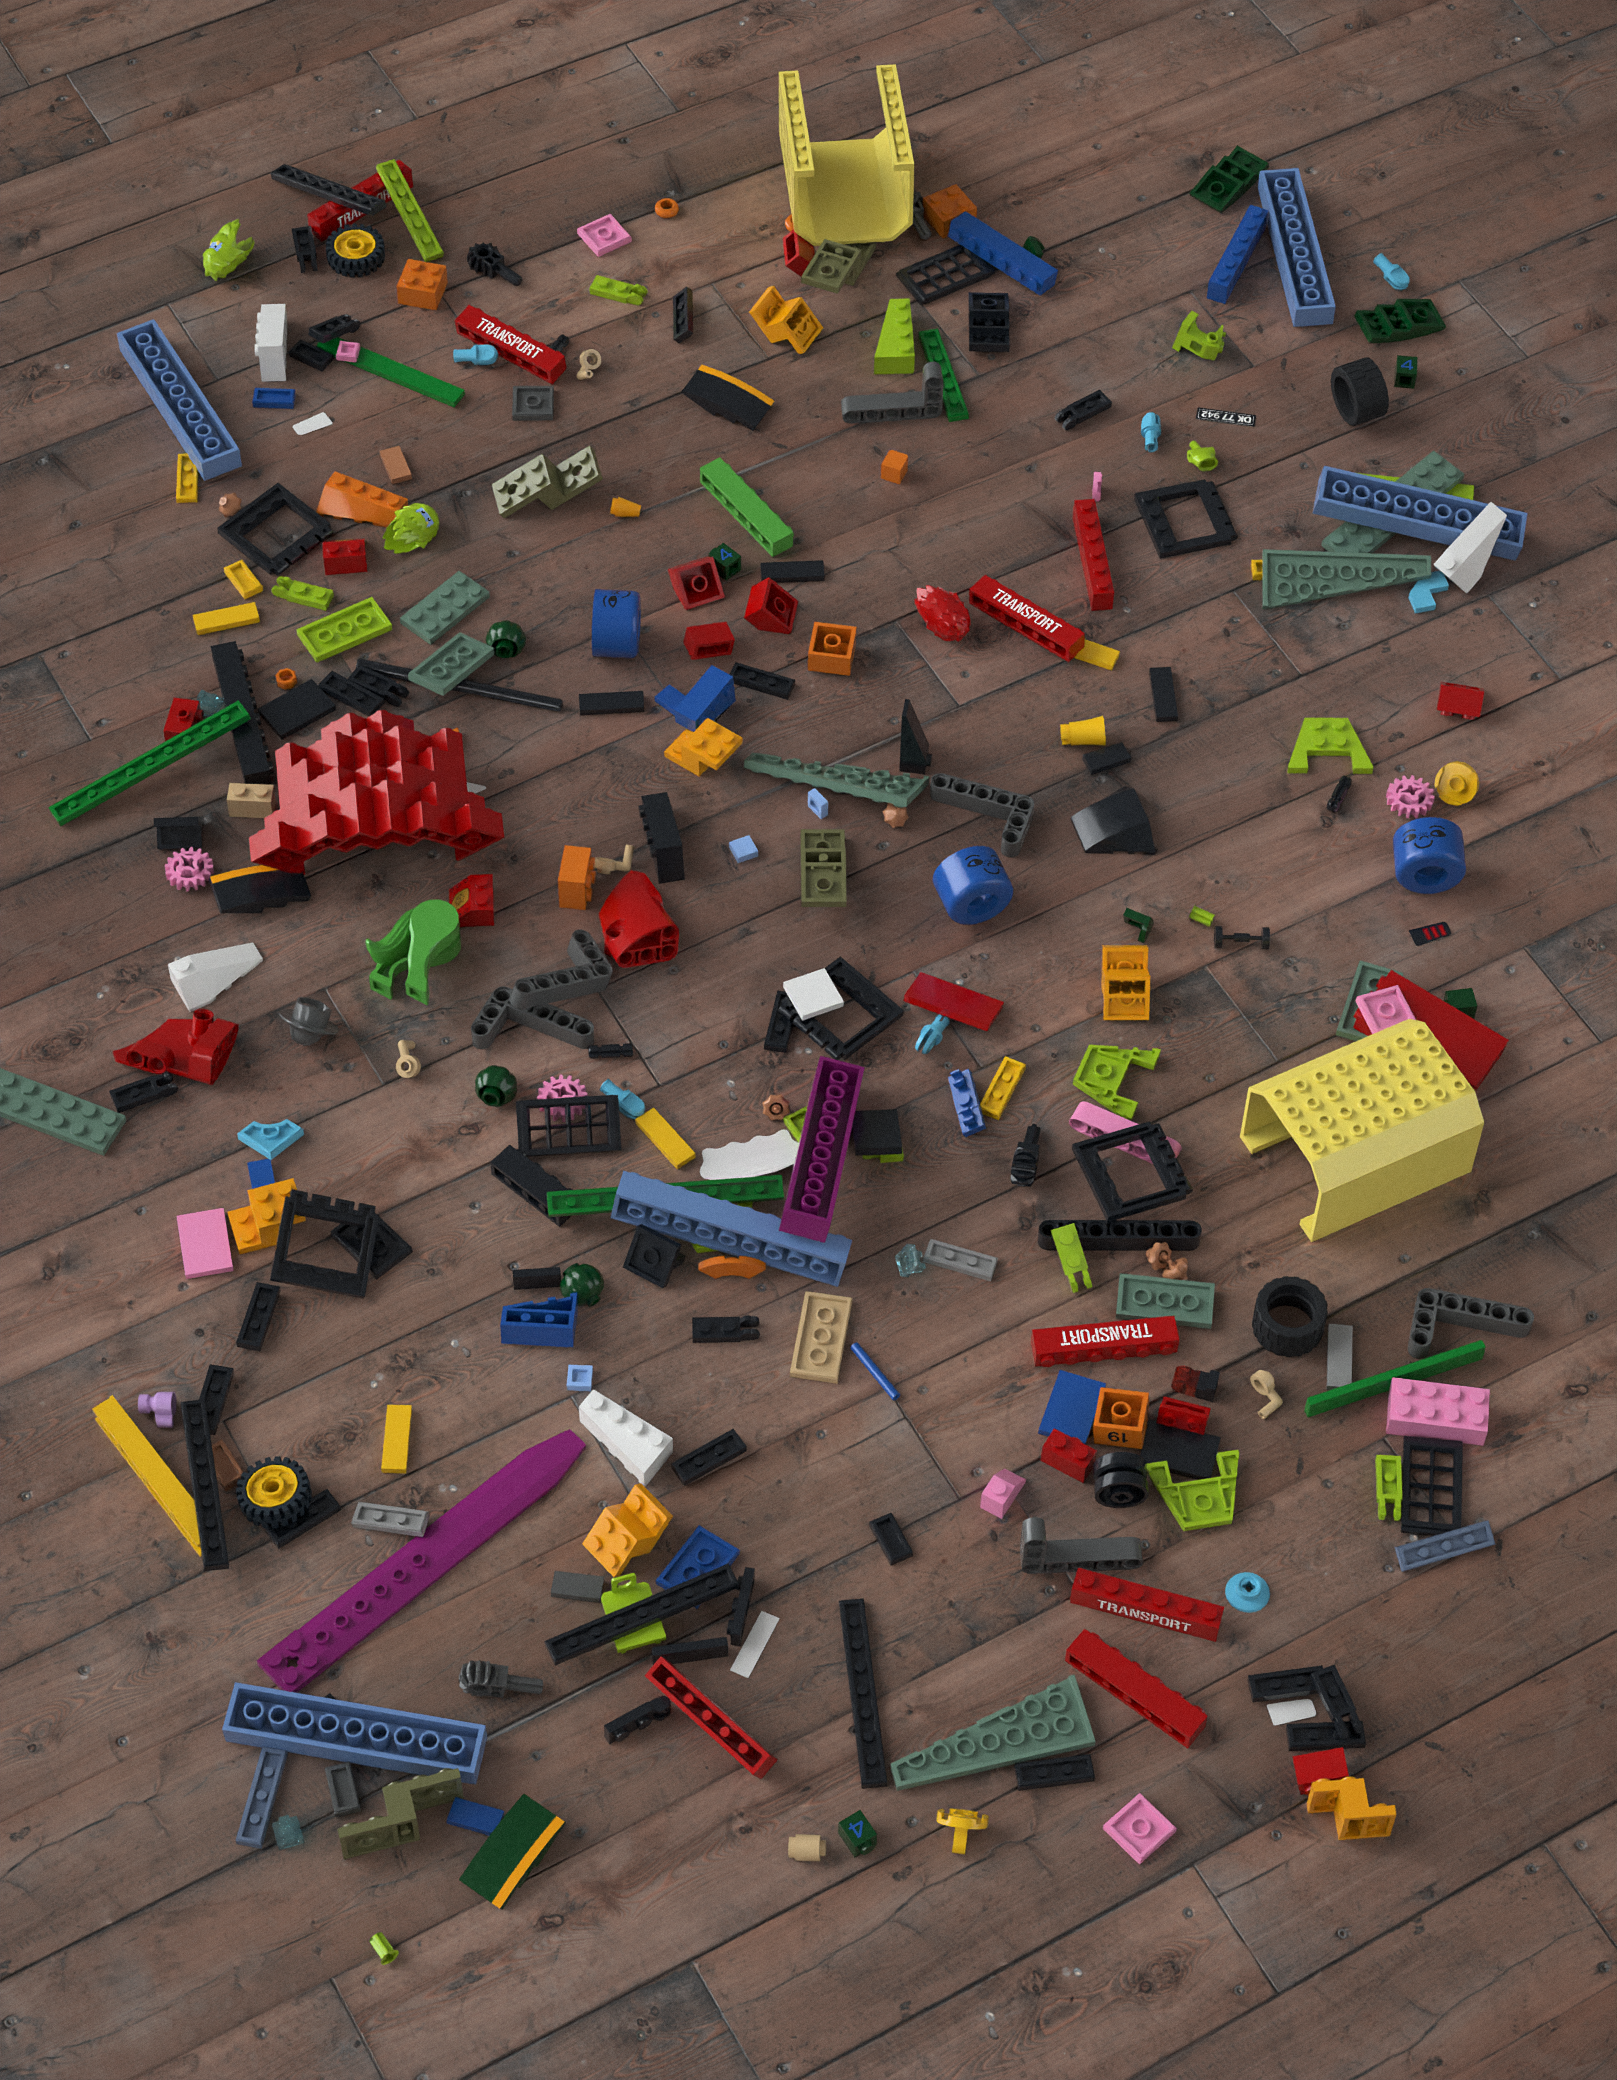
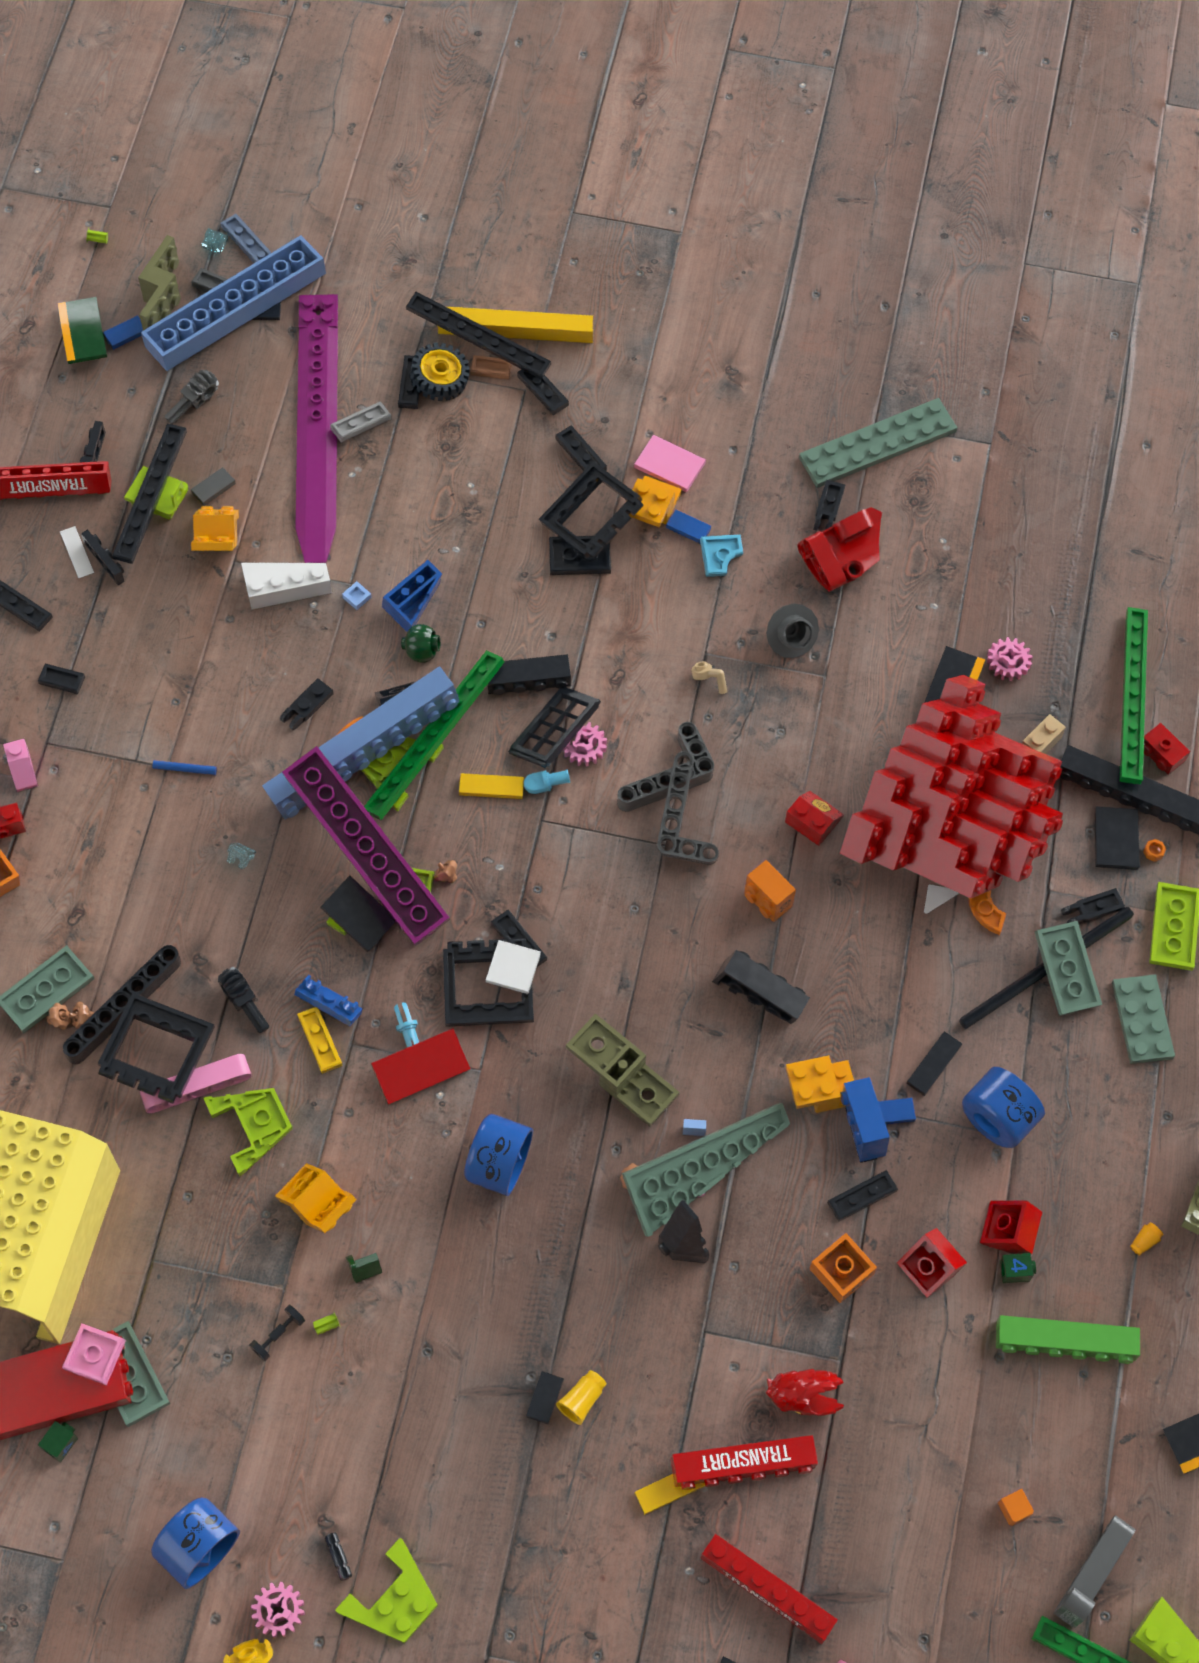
camera: 130 degrees right, 10 degrees up
(163, 1406) = (565, 360): lavender piece -> none
(179, 832) = (1054, 675): black bracket -> none
(208, 973) = (897, 607): white wedge -> none
(209, 702) = (1173, 779): clear light blue tile -> none
(351, 693) = (1098, 882): black plate -> none
(396, 1439) = (416, 466): yellow tile -> none
(418, 941) = (800, 737): bright green animal -> none
(492, 1083) = (633, 711): dark green plant -> none
(503, 636) = (1066, 1033): dark green plant -> none
(536, 1278) = (453, 621): black tile -> none
(606, 865) = (772, 935): tan plate -> none
(610, 1051) = (598, 807): black axle -> none
(636, 923) = (700, 907): red panel -> none
(692, 1651) = (104, 506): black tile -> none
(697, 1556) = (159, 560): blue tile -> none
(709, 640) = (935, 1180): red brick -> none
(709, 1457) = (222, 620): black plate -> none
(743, 849) = (701, 1042): light blue tile -> none
(751, 1158) = (421, 823): white sticker -> none
(793, 571) = (963, 1319): black tile -> none
(821, 1337) = (241, 756): tan tile -> none
(960, 1260) = (211, 890): light grey tile -> none
(989, 801) = (575, 1257): dark grey beam -> none
(1071, 1255) = (134, 952): lime hinge -> none
(1071, 1406) = (34, 861): blue tile -> none
(1104, 1341) = (56, 920): red brick -> none
(1115, 825) = (475, 1339): black wedge -> none
(1163, 694) = (569, 1509): black tile -> none
(1429, 933) = (146, 1496): black sticker -> none

